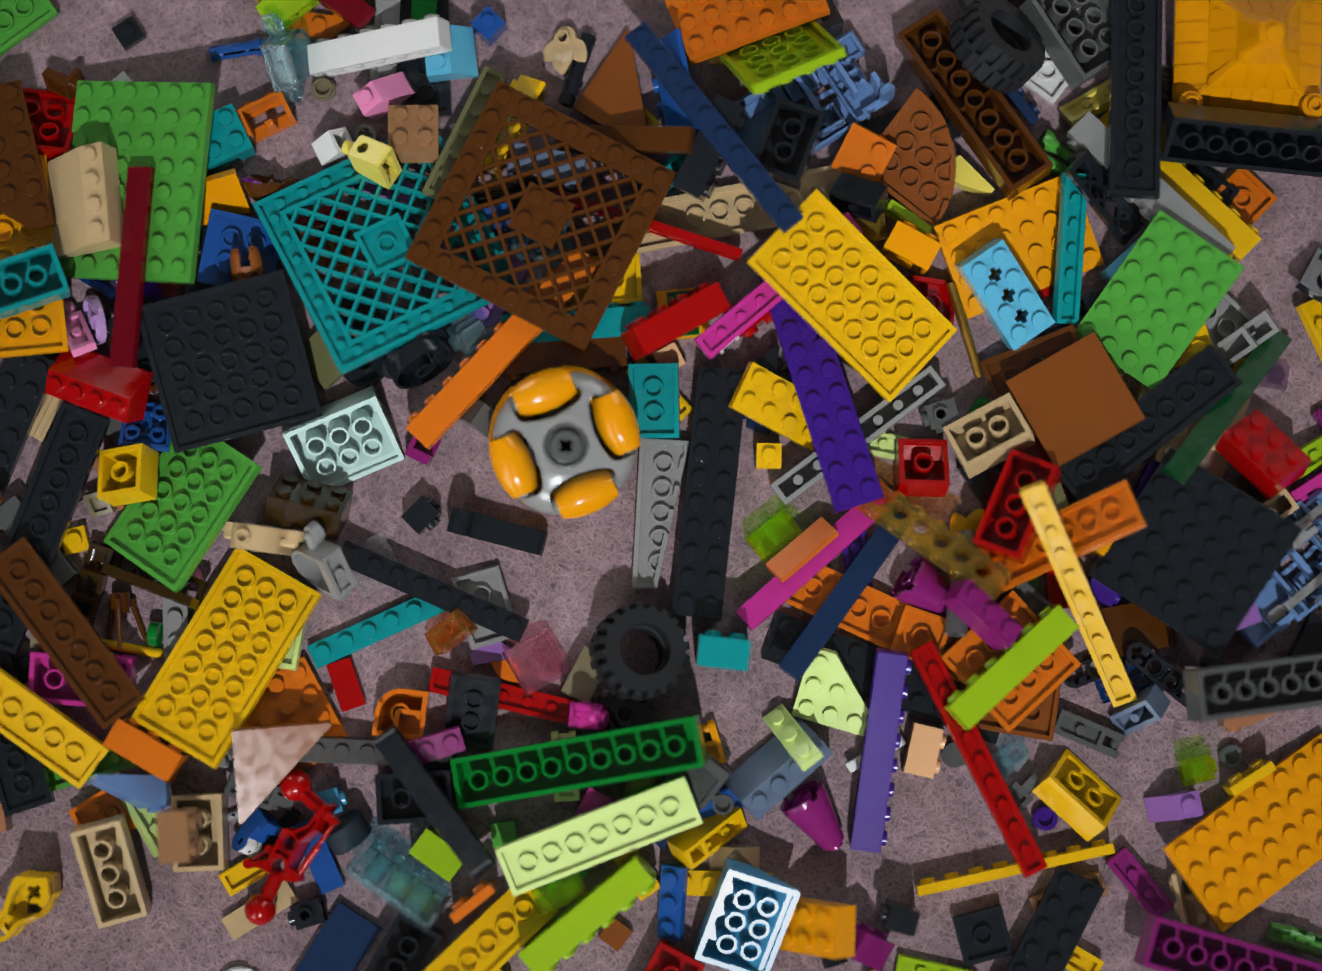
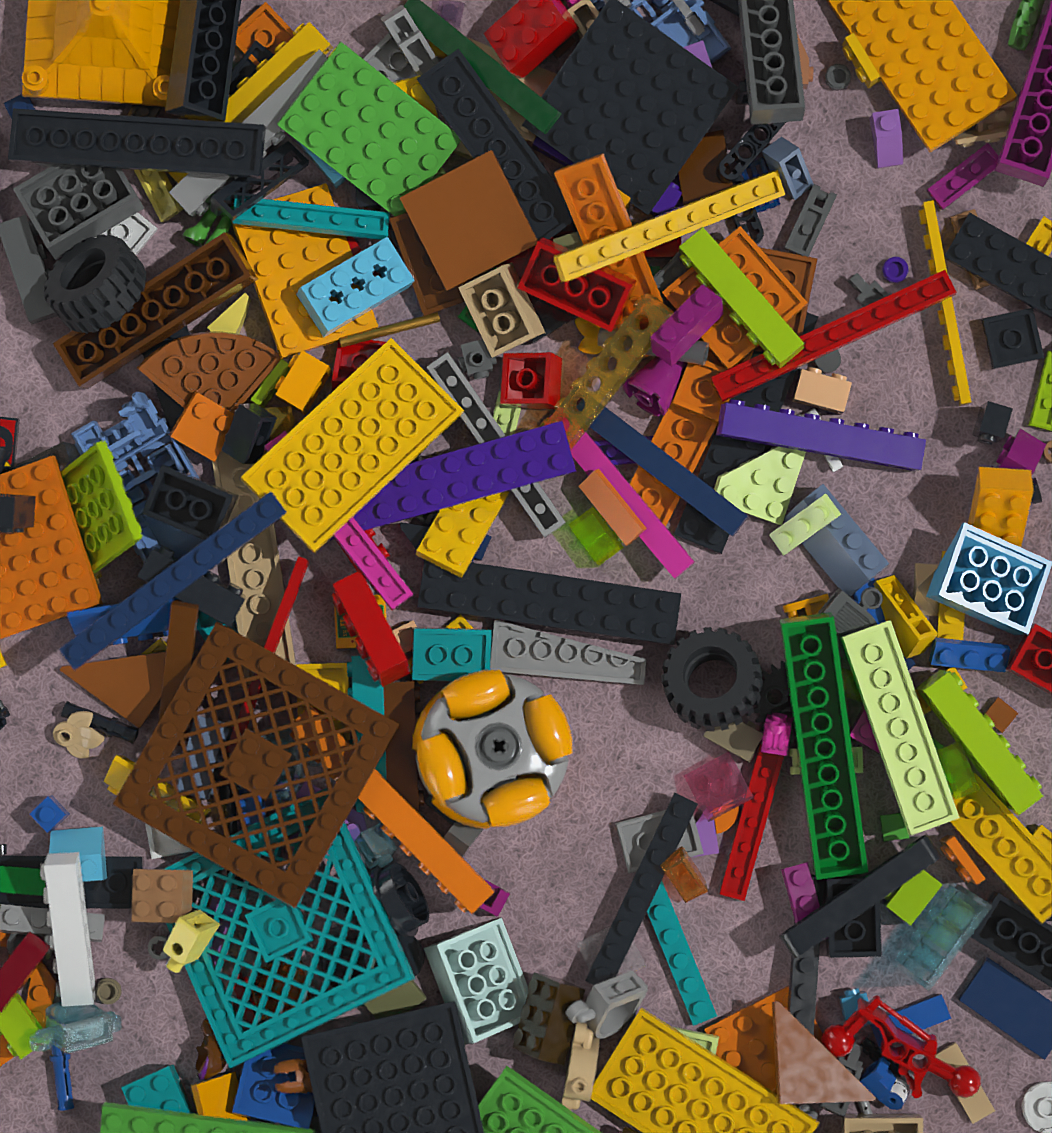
camera: 85 degrees left, 0 degrees up
(238, 877) = (930, 1103): yellow tile -> none
(270, 127) = (127, 1066): orange window -> none
(316, 911) = (962, 1026): black brick -> none
(329, 146) = (170, 984): white brick -> none
(346, 684) = (734, 986): red tile -> none
(349, 832) = (889, 986): black wheel -> none
(381, 92) = (116, 925): bright pink slope -> none
(405, 710) = (763, 924): orange brick -> none
(422, 515) = (561, 899): black brick -> none
(462, 129) = (159, 843): olive plate -> none
(474, 707) = (763, 852): black plate -> none
(497, 531) = (581, 822): black beam -> none
(723, 652) = (715, 592): teal brick -> none
(768, 456) = (513, 538): yellow brick -> none
(814, 815) = (885, 505): magenta cone -> none
(1006, 763) = (838, 306): clear light blue plate -> none
(1029, 110) = (163, 253): dark blue plate -> none
(1077, 795) = (873, 235): yellow slope -> none
(1196, 769) = (850, 113): clear neon green brick -> none

